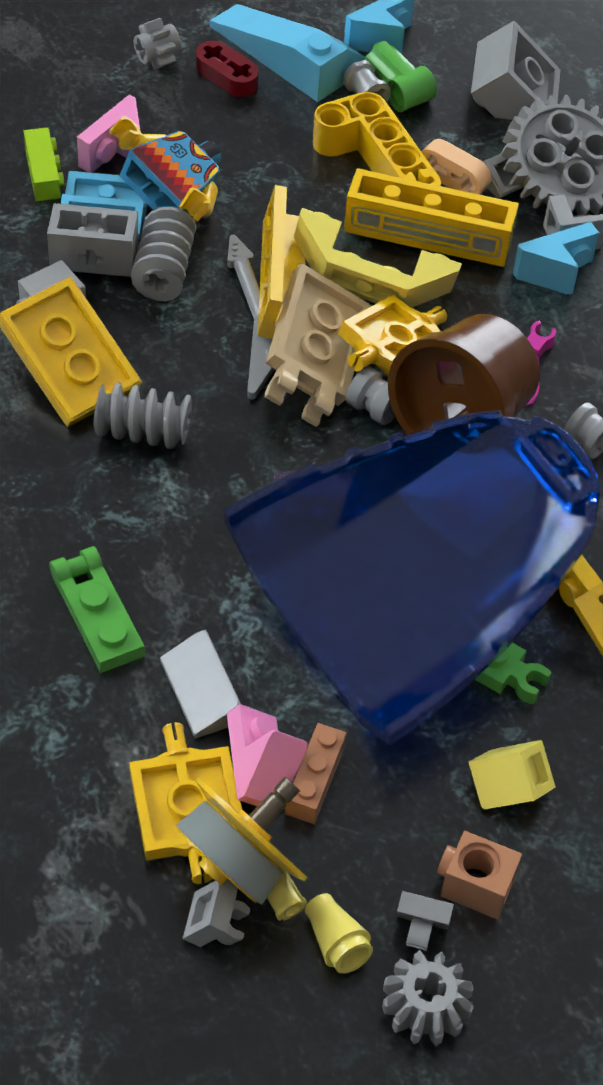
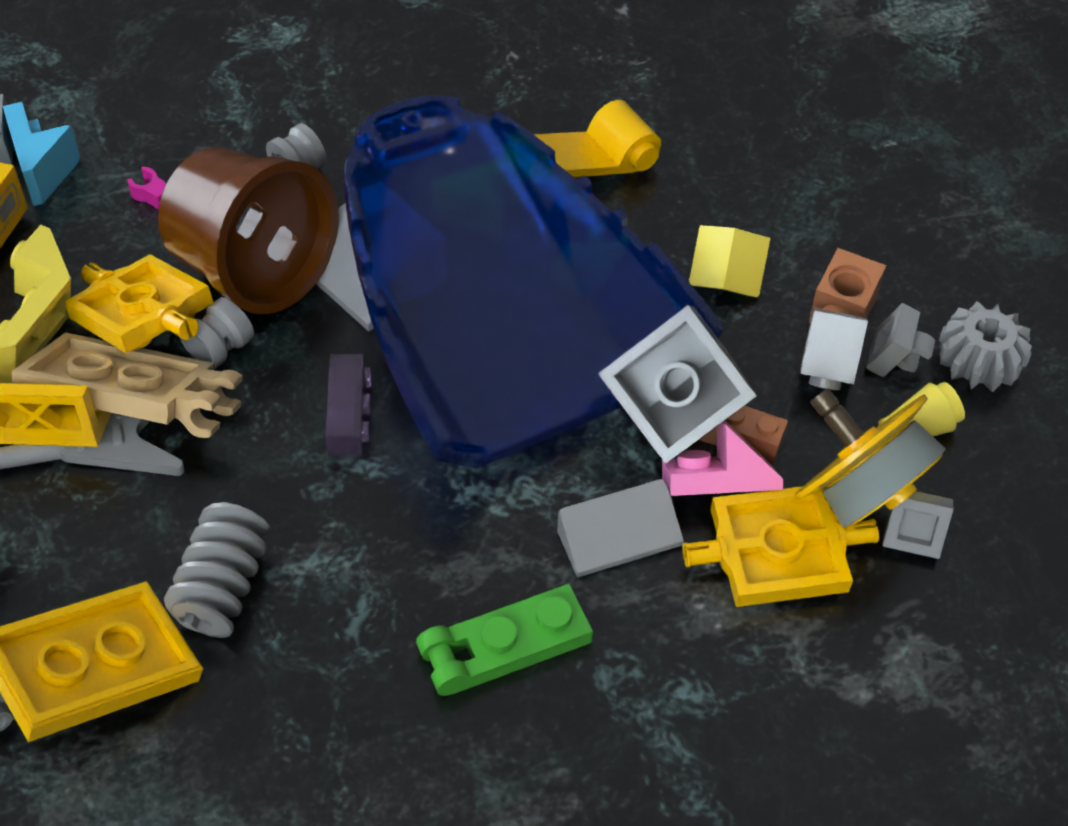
camera: 85 degrees left, 0 degrees up
(327, 697) = (678, 383): none -> light grey slope
(404, 848) = (833, 348): none -> brick

